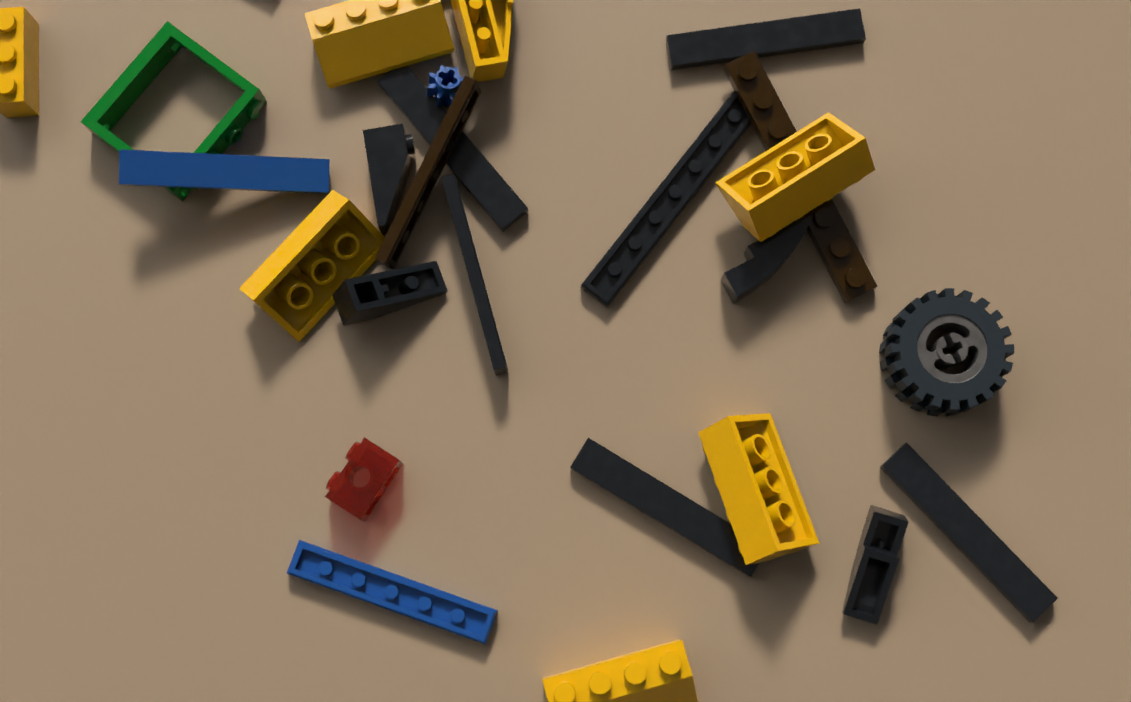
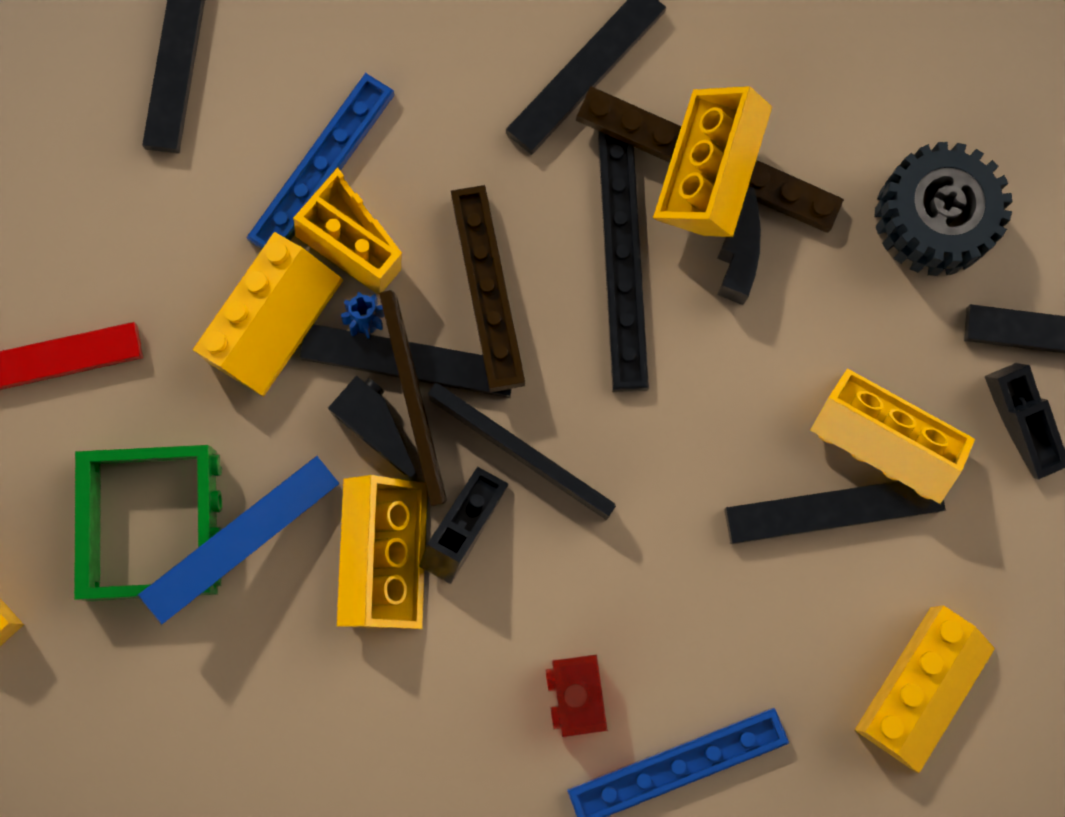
camera: 45 degrees left, 0 degrees up
(551, 138) = (487, 289): none -> dark brown plate

